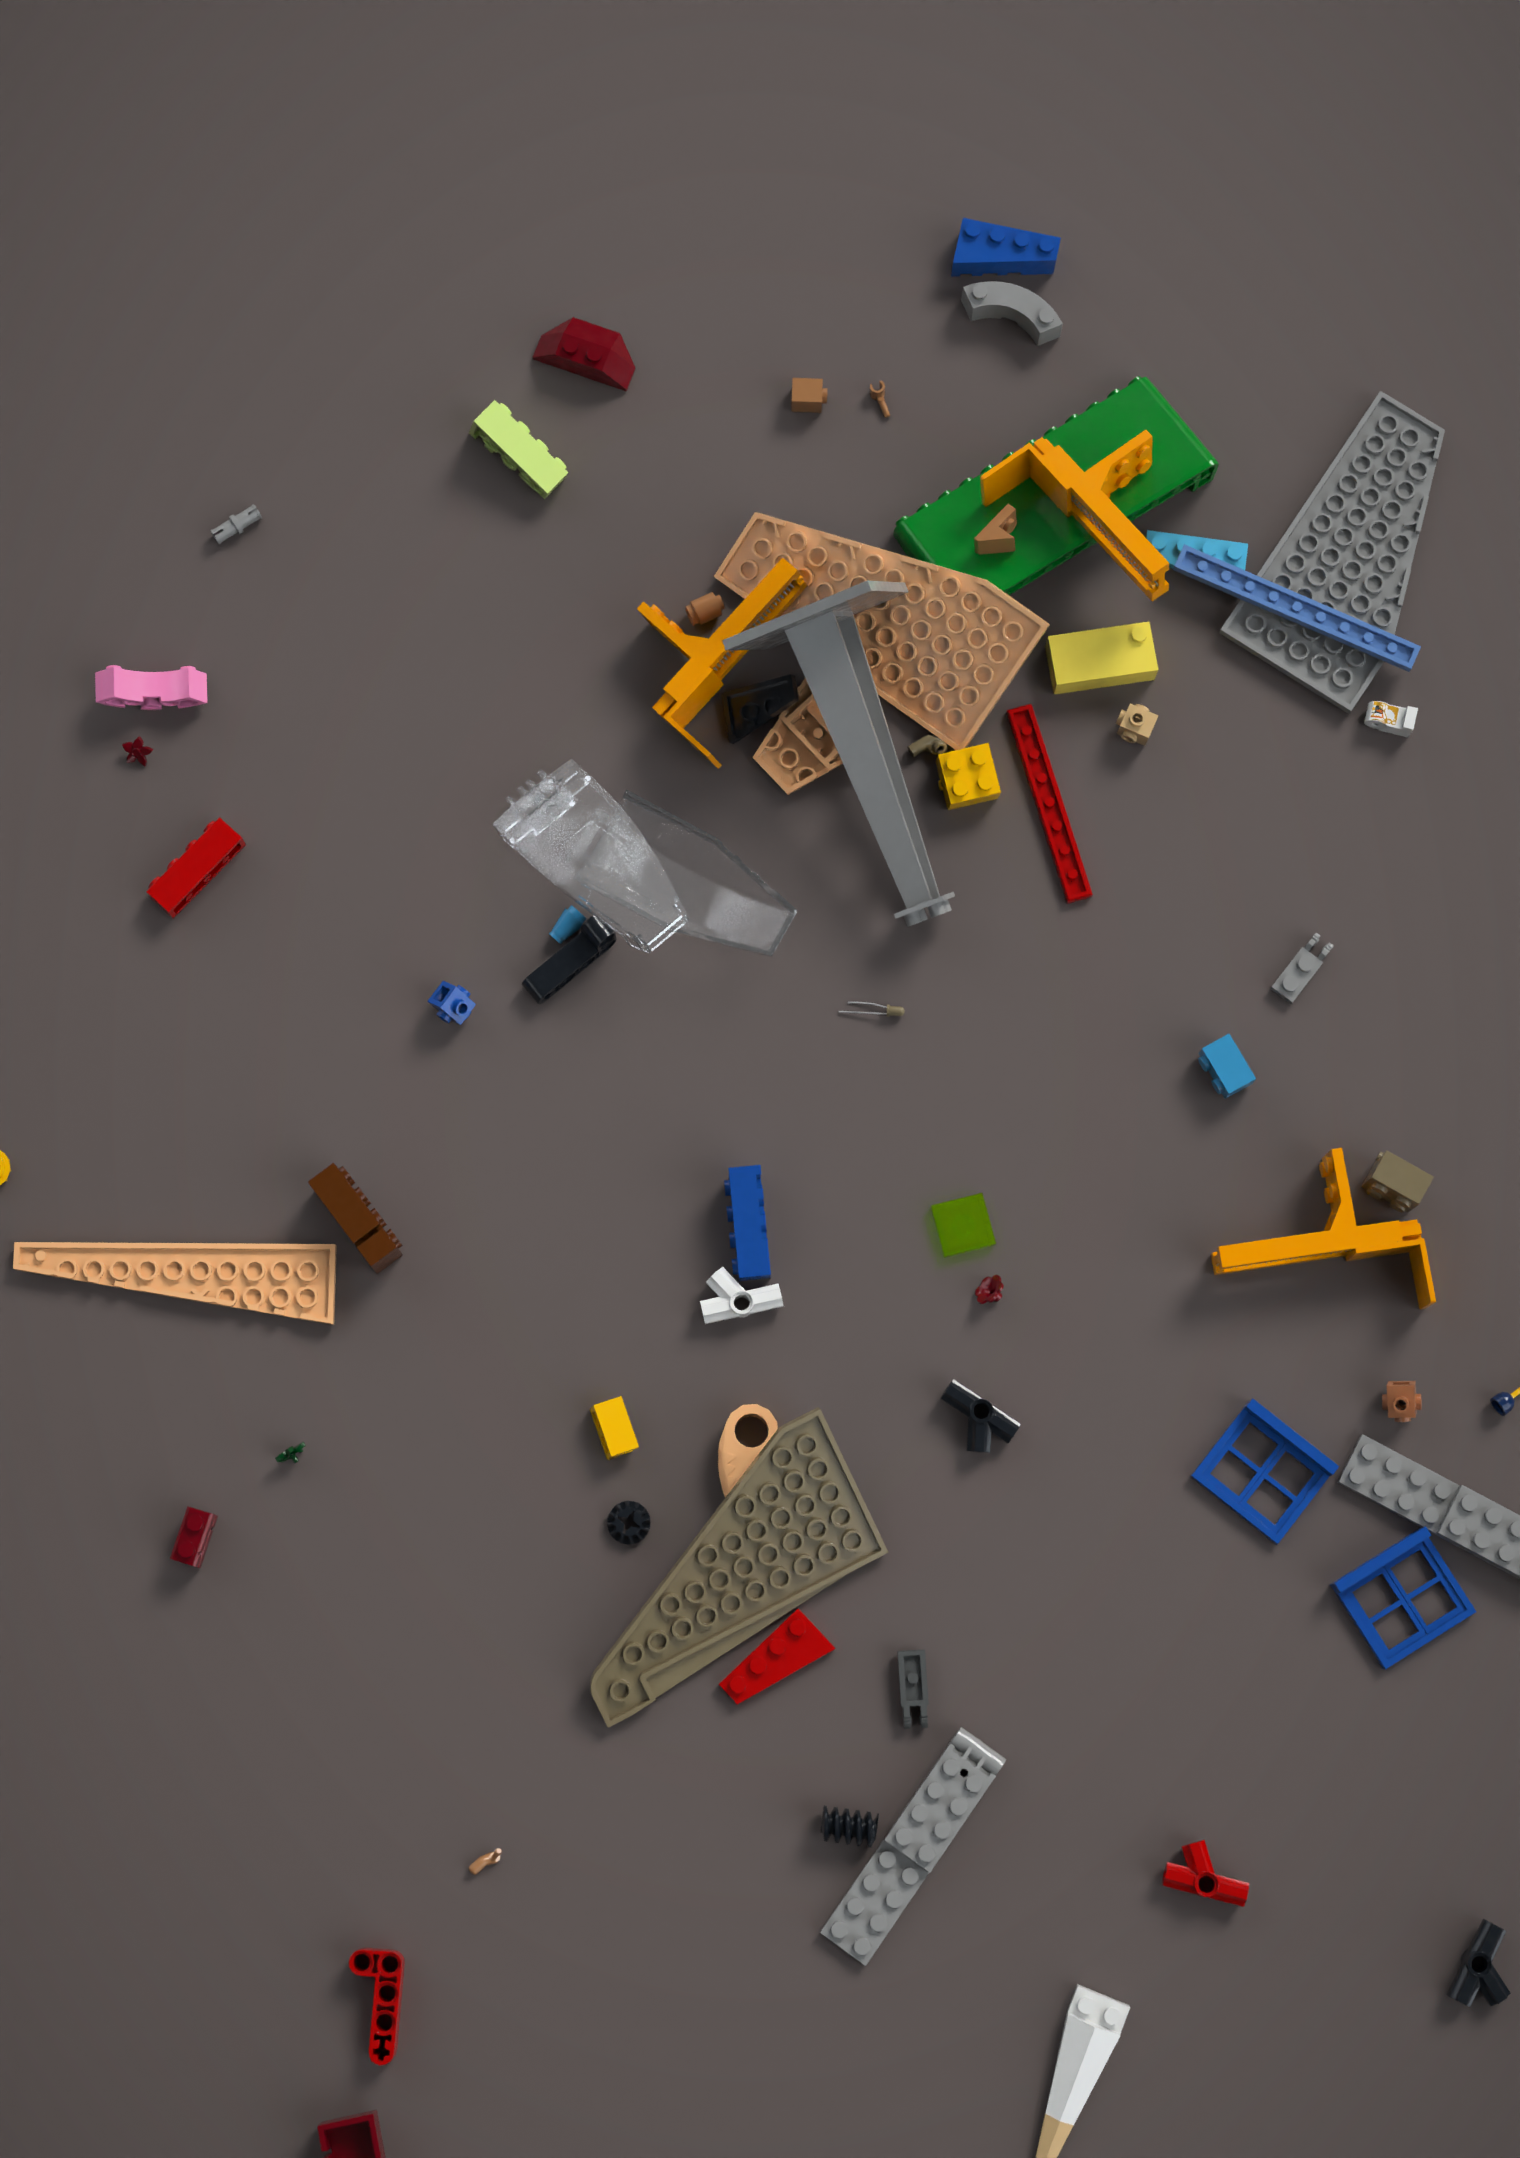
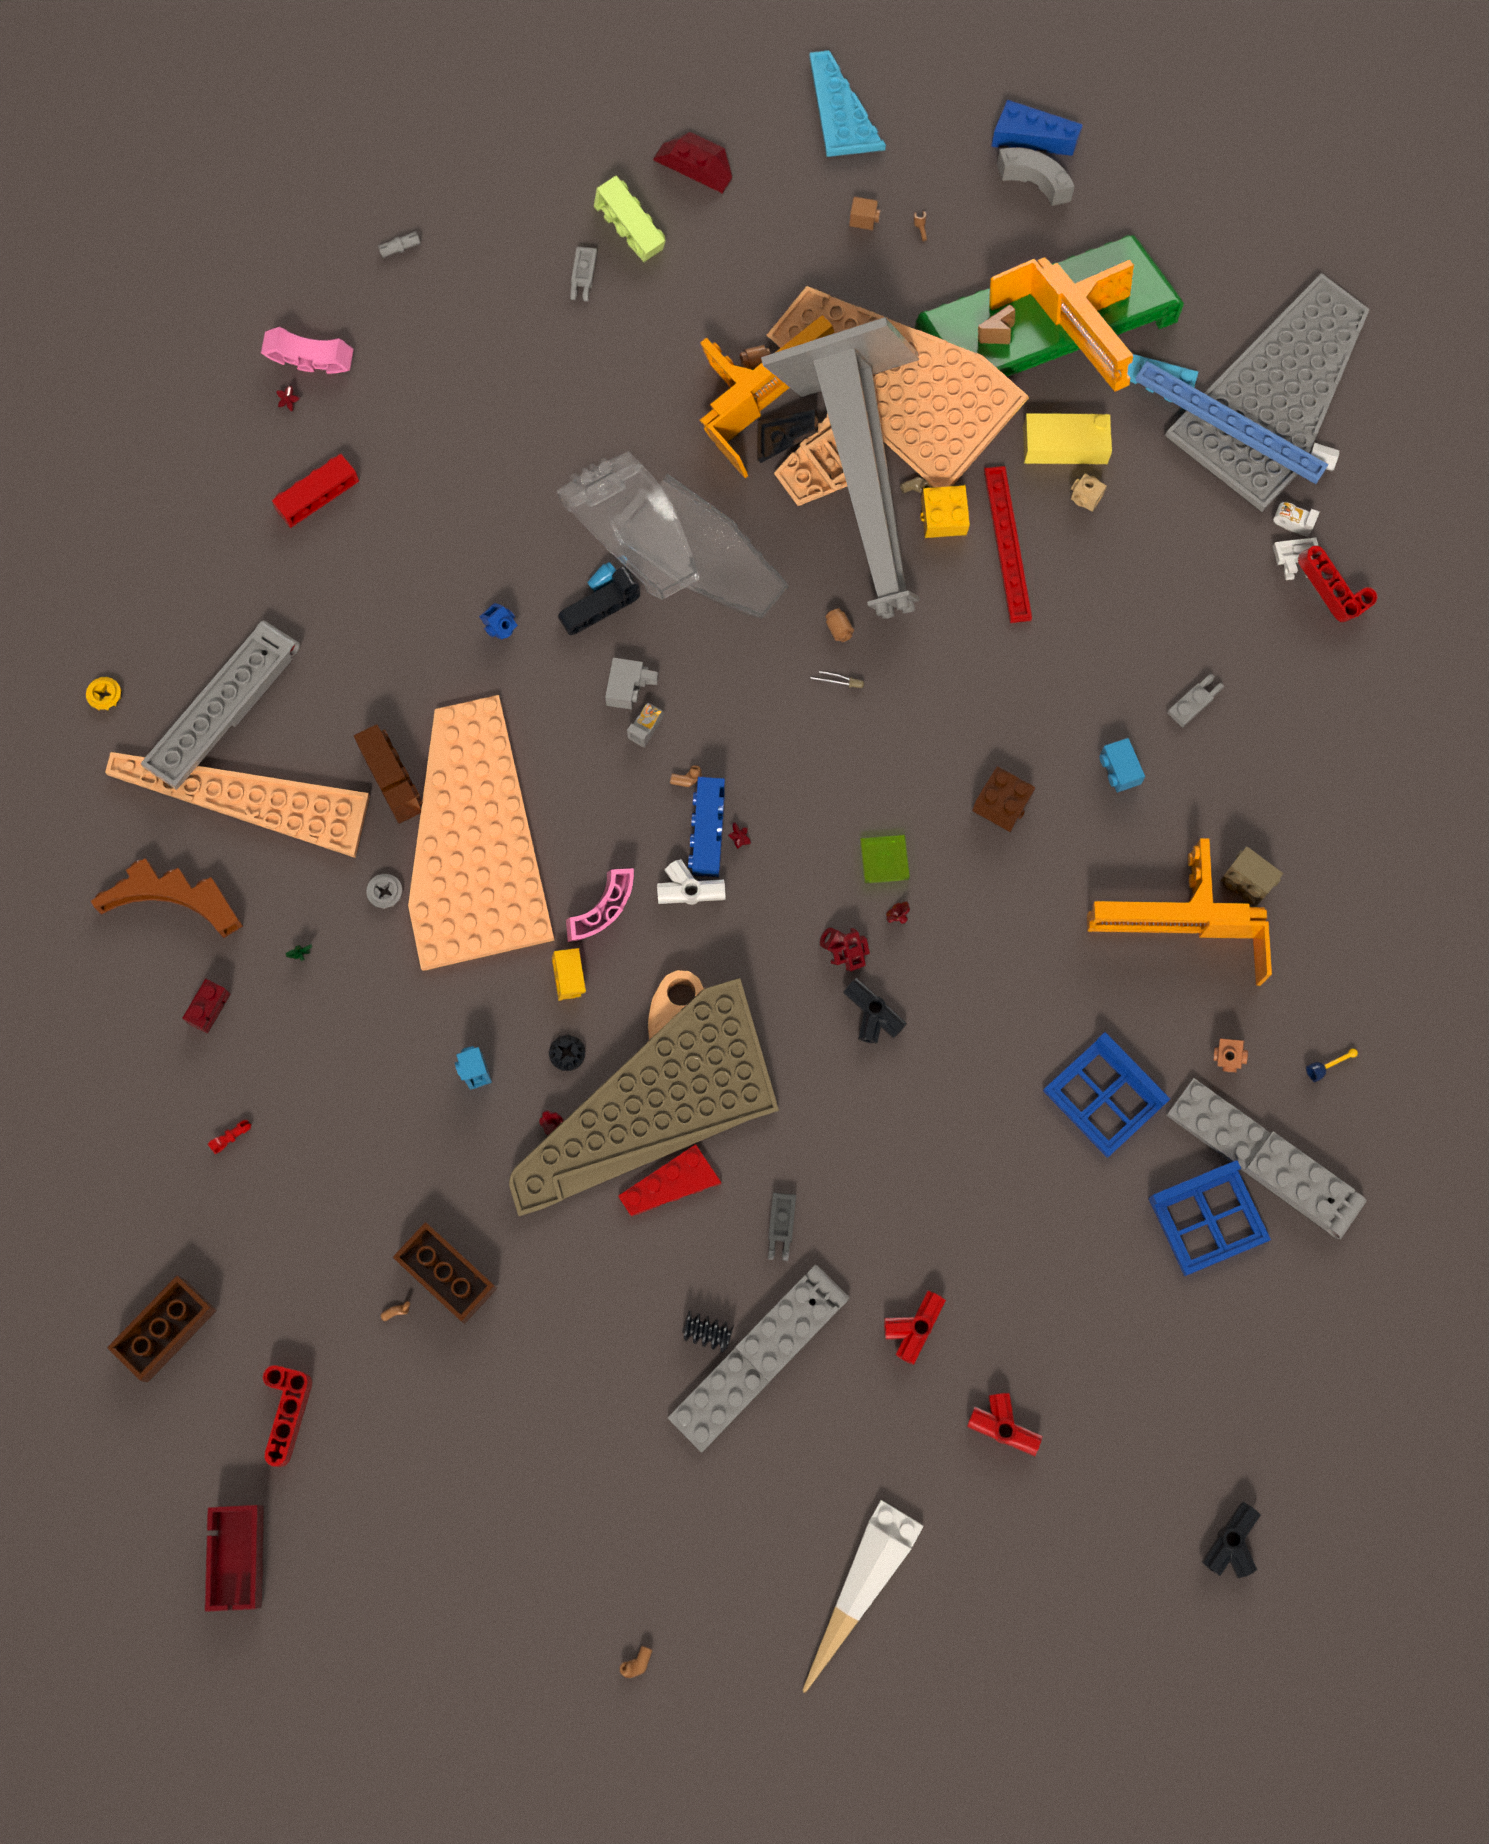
camera: 10 degrees right, 5 degrees down
(126, 1397) = (172, 887): none -> dark orange arch
(137, 1161) = (221, 704): none -> light grey hinge
(220, 1929) = (161, 1329): none -> reddish brown brick
(252, 1687) = (221, 1142): none -> red piece
(372, 1349) = (383, 881): none -> light grey gear
(472, 525) = (583, 271): none -> light grey hinge
(476, 1302) = (474, 854): none -> light nougat wing
(523, 1561) = (472, 1067): none -> dark azure brick
(535, 1809) = (445, 1273): none -> reddish brown brick
(617, 1050) = (625, 682): none -> light grey hinge
(625, 1610) = (550, 1121): none -> dark red plant
(645, 1343) = (611, 904): none -> bright pink brick
(651, 1104) = (645, 725): none -> light grey leg
(714, 1163) = (688, 779): none -> medium nougat arm
(759, 265) = (841, 114): none -> medium azure wing
(786, 1225) = (739, 836): none -> dark red plant
(863, 941) = (839, 625): none -> medium nougat brick
(926, 1340) = (840, 941): none -> dark red piece
(1074, 1785) = (904, 1327): none -> red piece
(1093, 1130) = (1003, 799): none -> reddish brown brick
(1397, 760) = (1288, 552): none -> white plate
(1414, 631) = (1325, 454): none -> white piece
(1447, 795) = (1332, 581): none -> red beam

